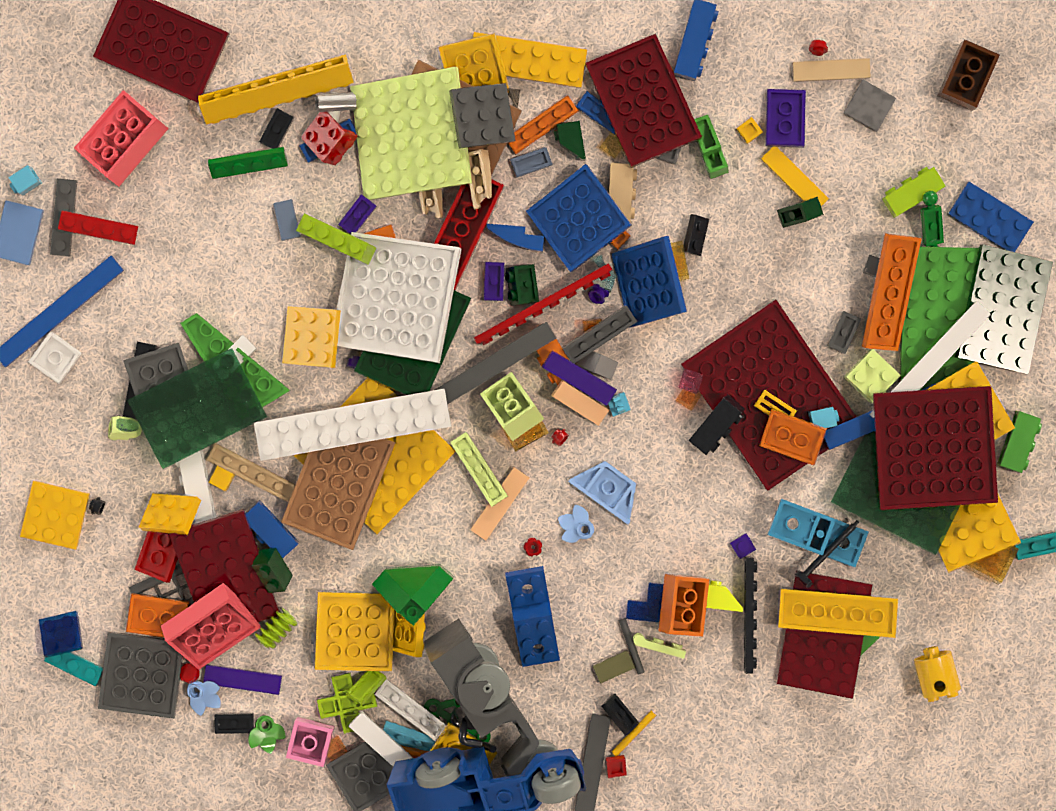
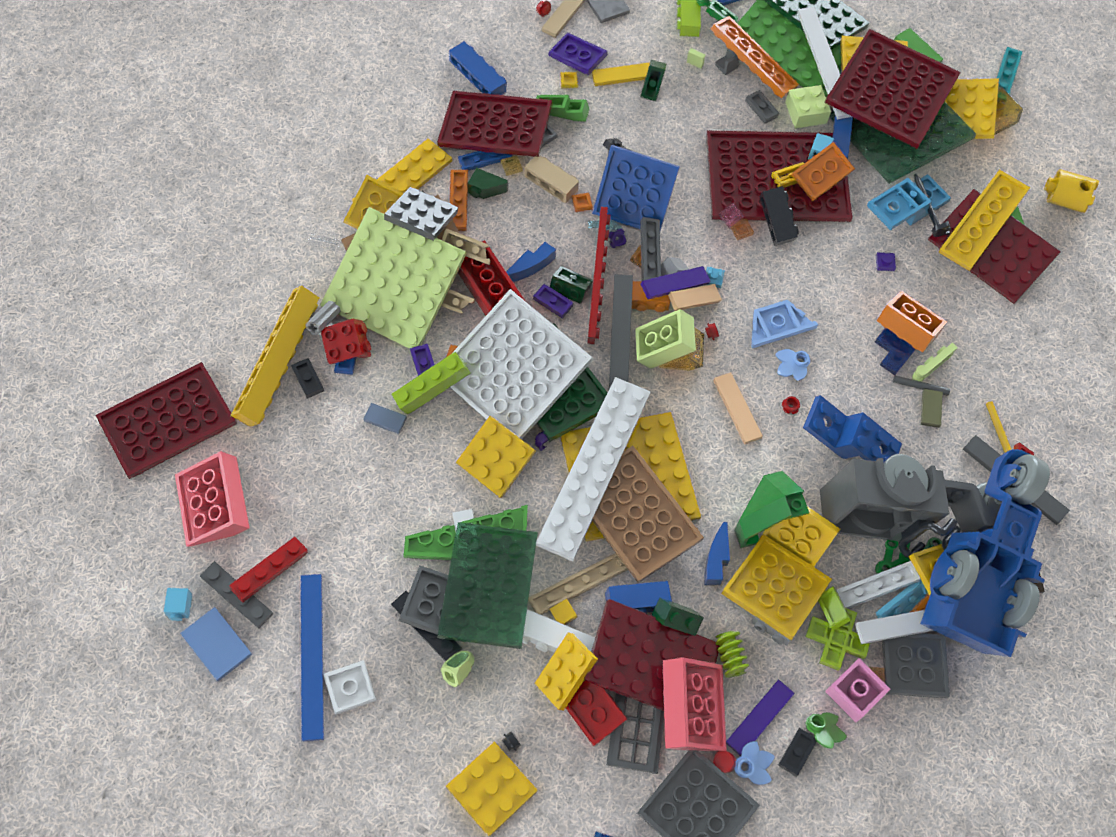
camera: 60 degrees left, 25 degrees down
(150, 612) = (647, 757): orange tile -> none
(247, 163) = (315, 415): green plate -> none
(349, 568) = (717, 557): none -> blue slope
(479, 469) = (699, 402): yellowish green plate -> none
(531, 162) = (480, 223): sand blue tile -> none
(578, 218) = (549, 211): blue plate -> none
(620, 714) = (972, 426): black plate -> none
(721, 598) = (924, 293): neon yellow slope -> none
(750, 623) = (947, 287): black plate -> none
(858, 231) = (696, 58): none -> yellowish green tile

